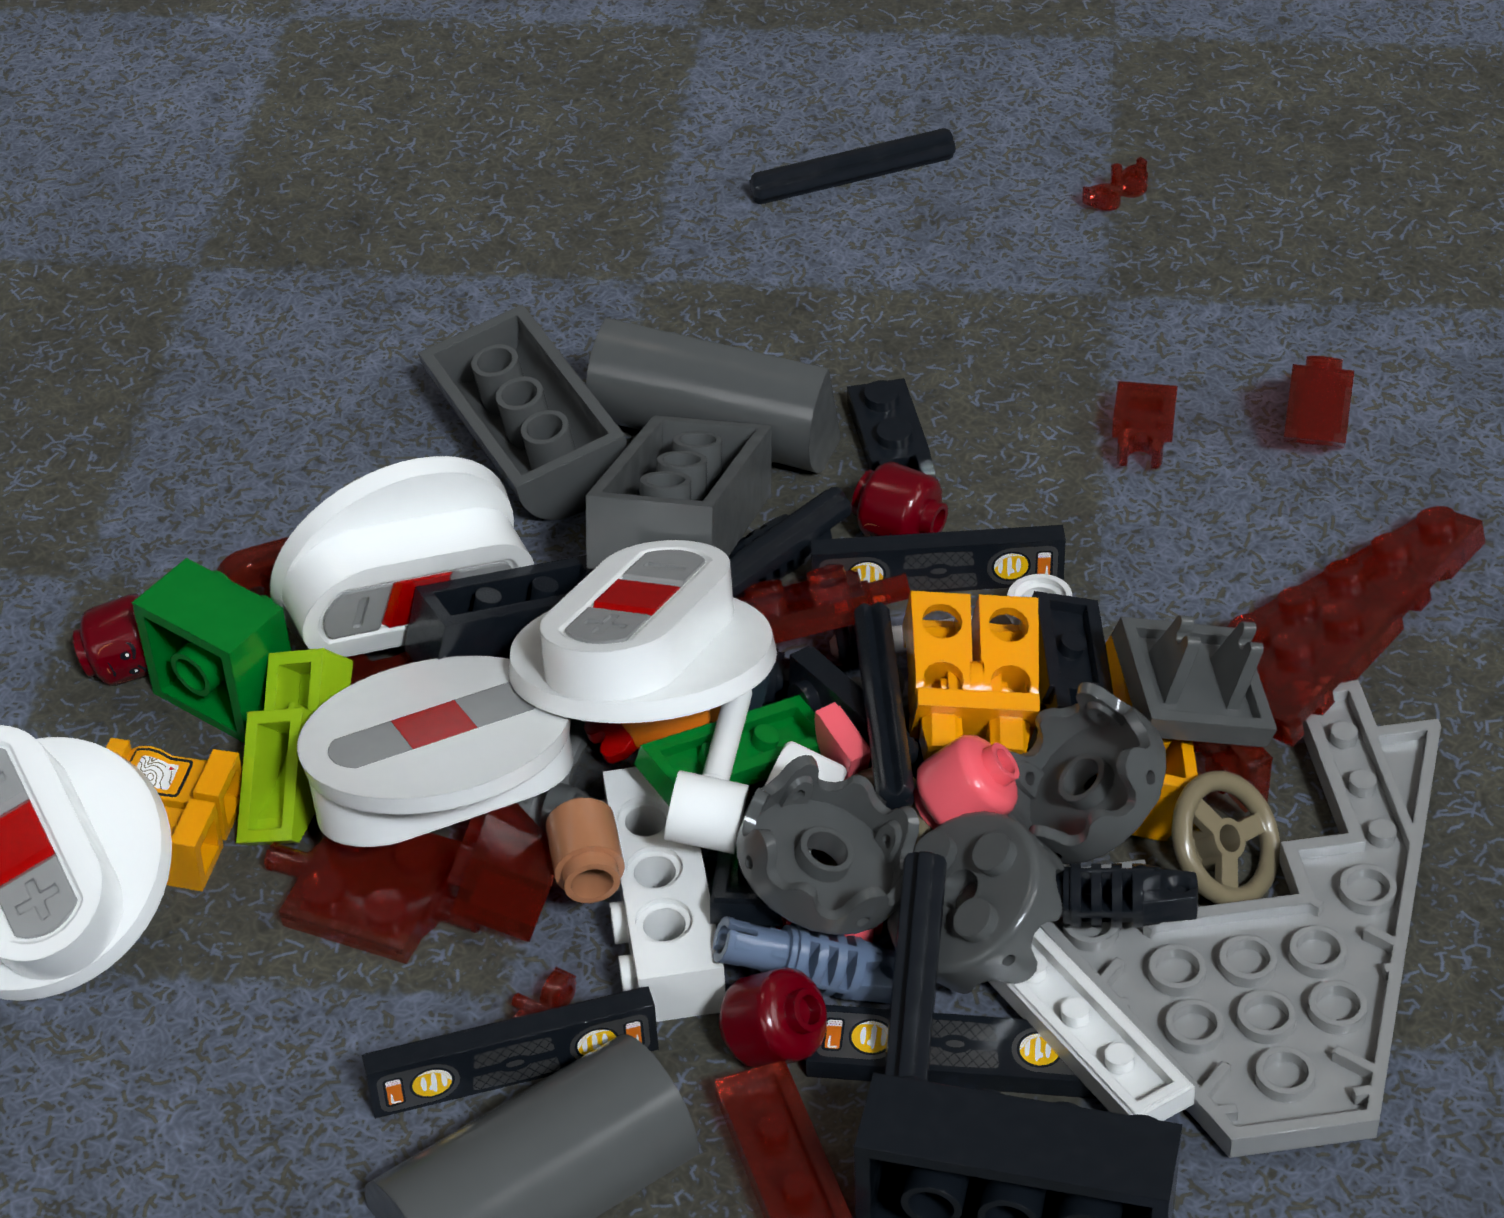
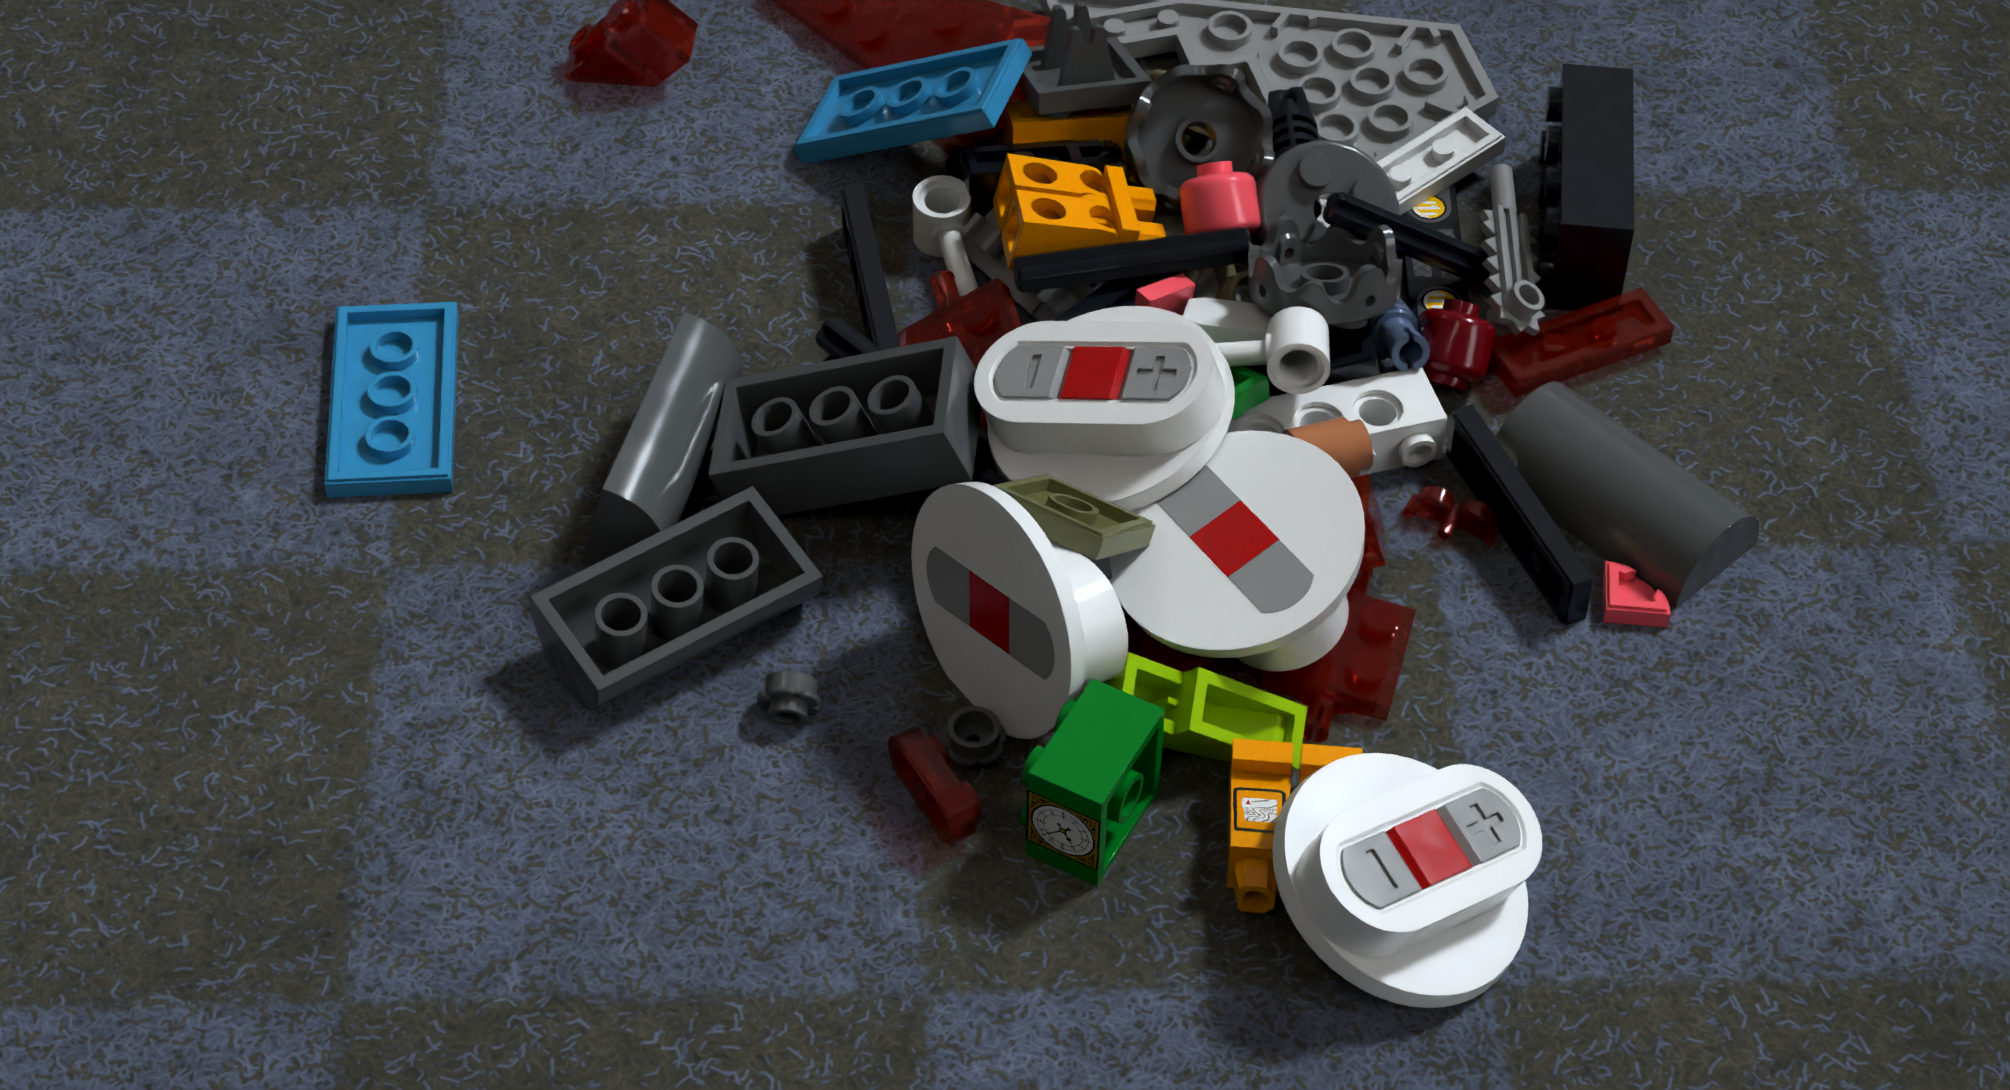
camera: 100 degrees left, 5 degrees up
(110, 642) = (1055, 897): dark red head -> none
(379, 1150) = (1632, 599): none -> coral tile
(467, 586) = (1080, 518): none -> olive tile
(842, 273) = (392, 400): none -> dark azure tile
(845, 1075) = (1508, 243): none -> light grey piece
(852, 166) = (200, 399): black axle -> none
(889, 425) = (636, 346): black hinge -> none
(898, 502) = (796, 309): dark red head -> none
(1128, 183) = (241, 188): clear red piece -> none
(1143, 419) = (646, 160): clear red plate -> none
(1186, 575) = (913, 101): none -> dark azure tile

